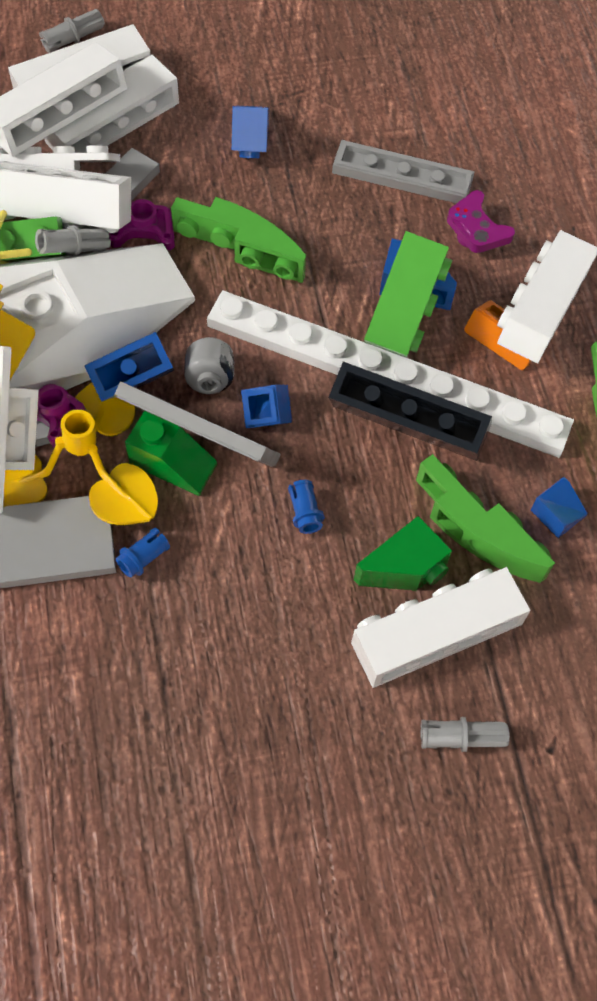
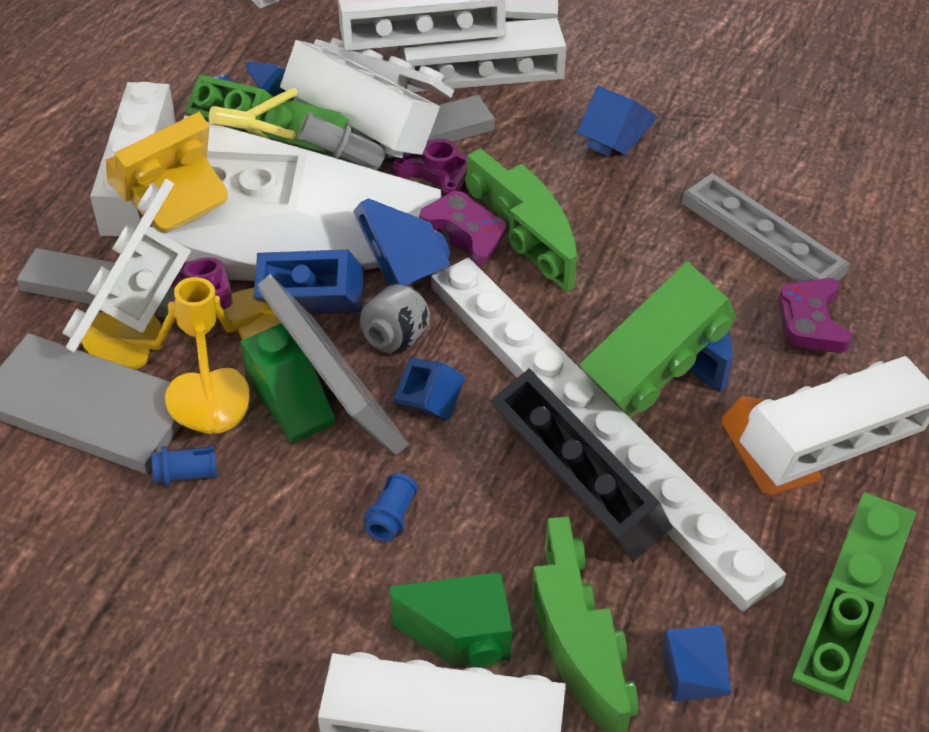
camera: 35 degrees right, 15 degrees down
(178, 307) = (401, 243): none -> blue slope
(204, 265) = (467, 225): none -> magenta piece

